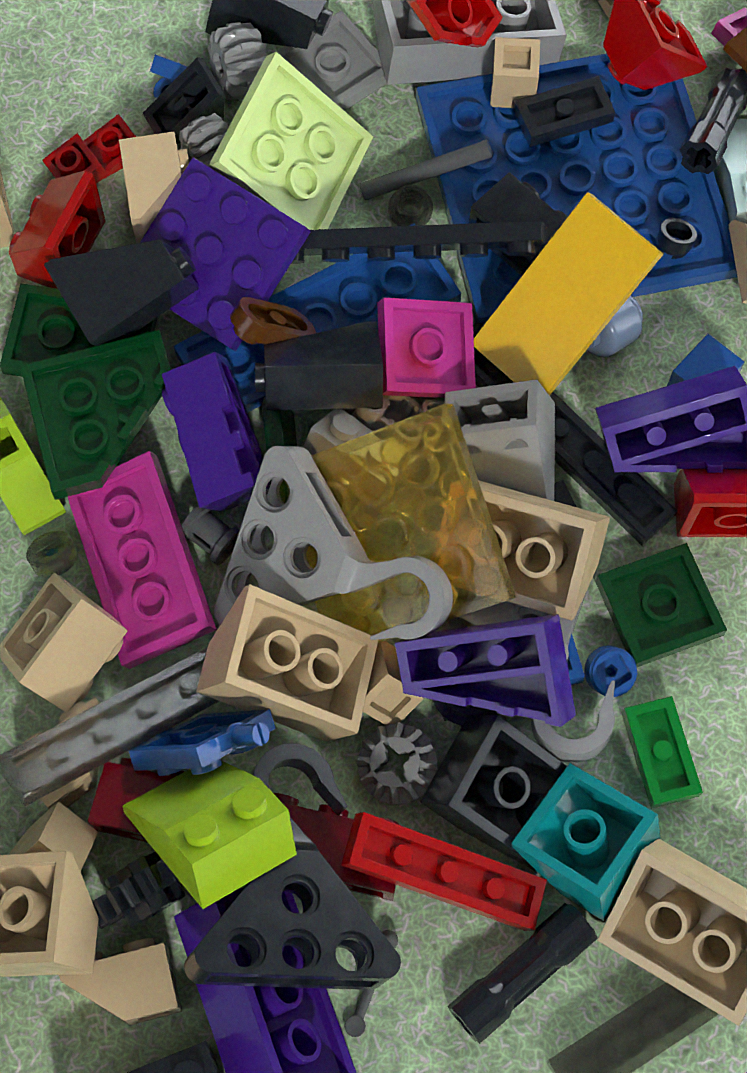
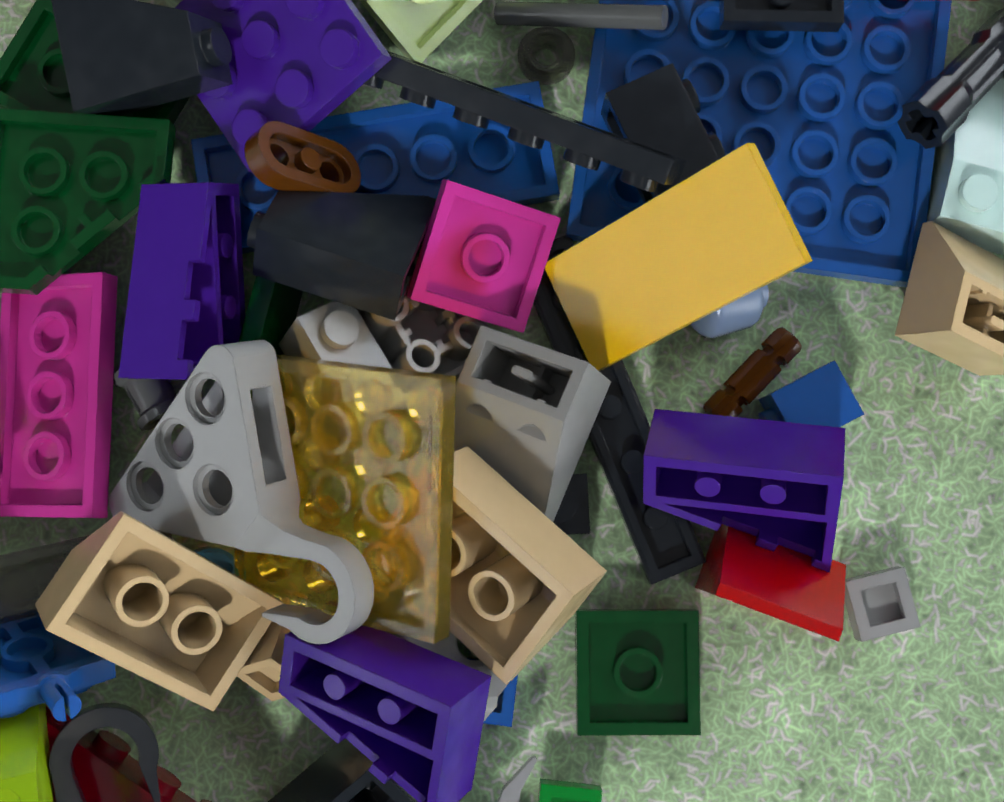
camera: 20 degrees right, 15 degrees up
(418, 769) = (274, 724): light grey gear -> none
(608, 665) = (546, 728): blue tile -> none
(657, 363) = (754, 374): none -> reddish brown axle
(676, 228) = (859, 209): black hinge -> none

